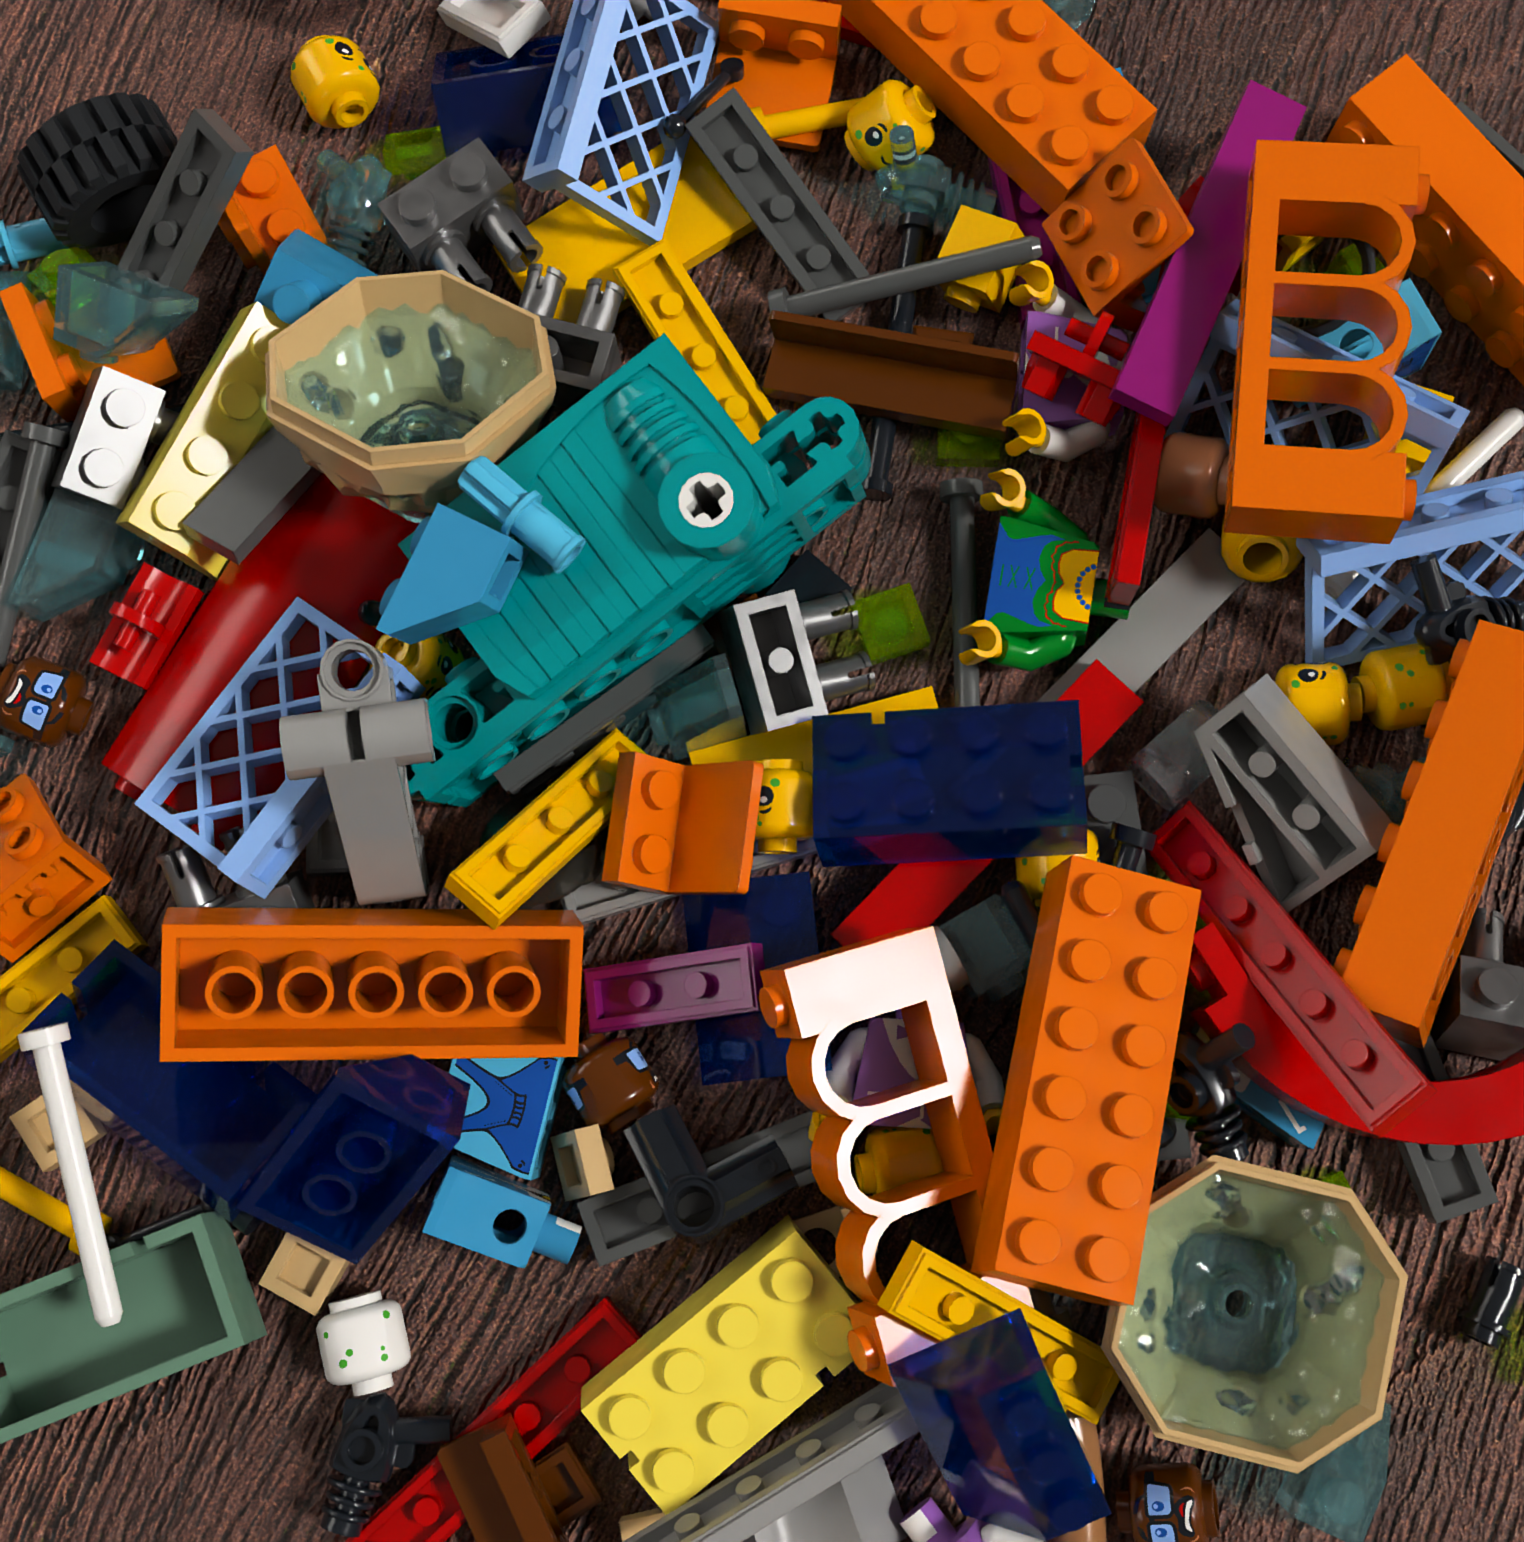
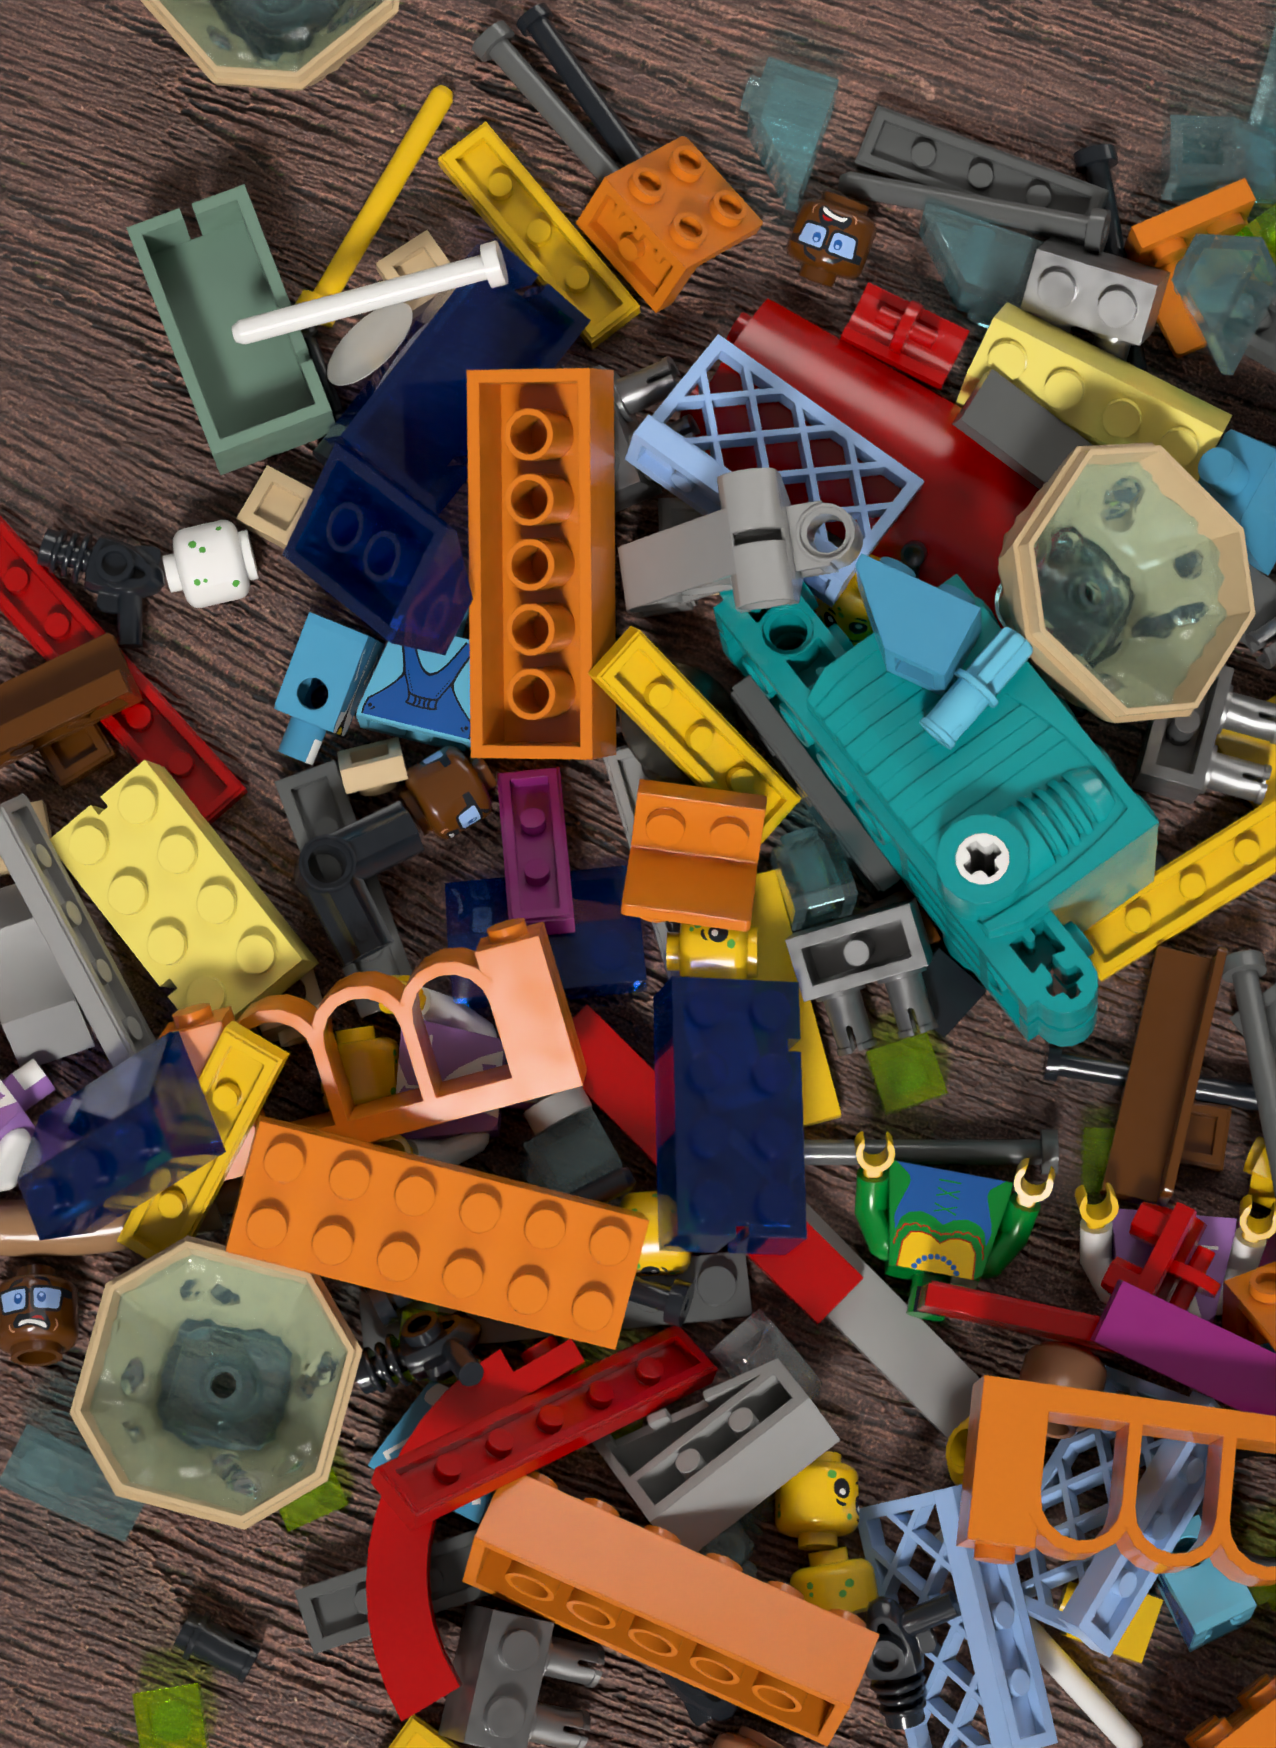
camera: 85 degrees right, 0 degrees up
(130, 1175) = (369, 344): none -> white sticker

